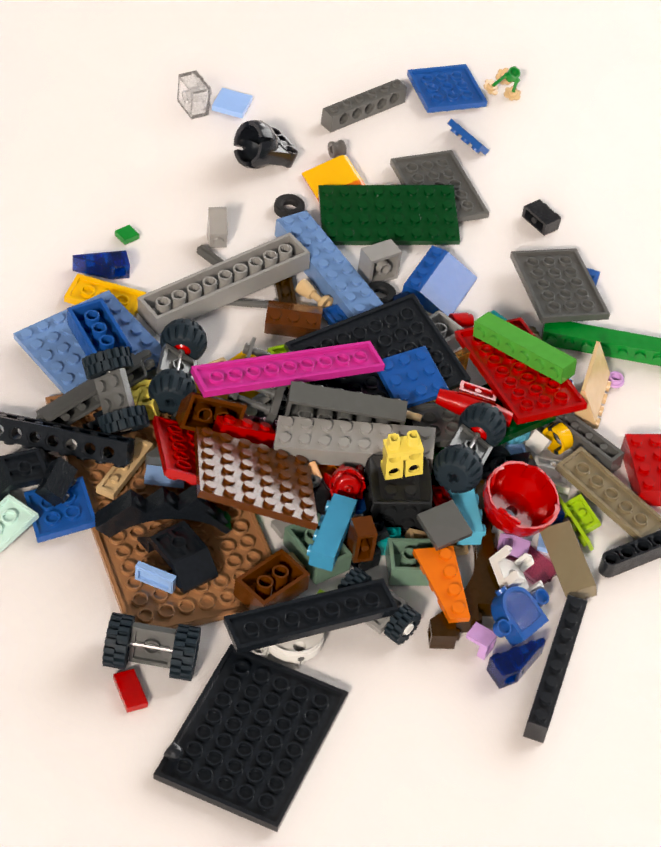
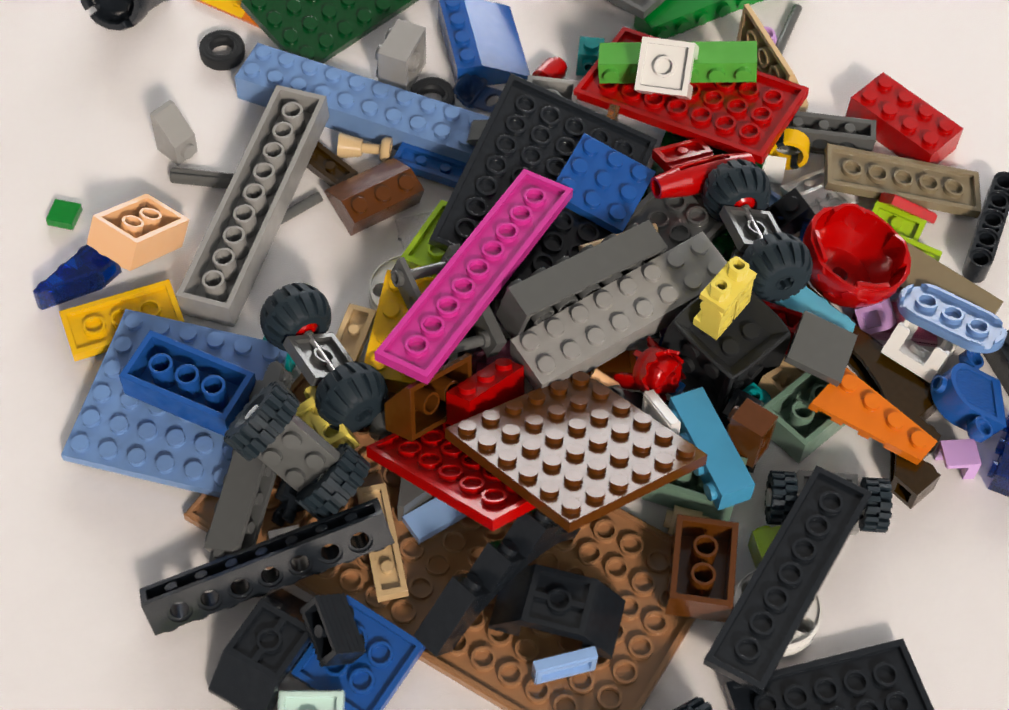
camera: 35 degrees left, 10 degrees up
(149, 258) = (137, 231): none -> light nougat brick
(321, 503) = (658, 410): none -> white tile
(506, 341) = (666, 67): none -> white panel
(550, 569) = (952, 318): none -> medium blue tile
(596, 508) = (907, 206): none -> tile
(635, 385) = (788, 27): none -> dark grey bar

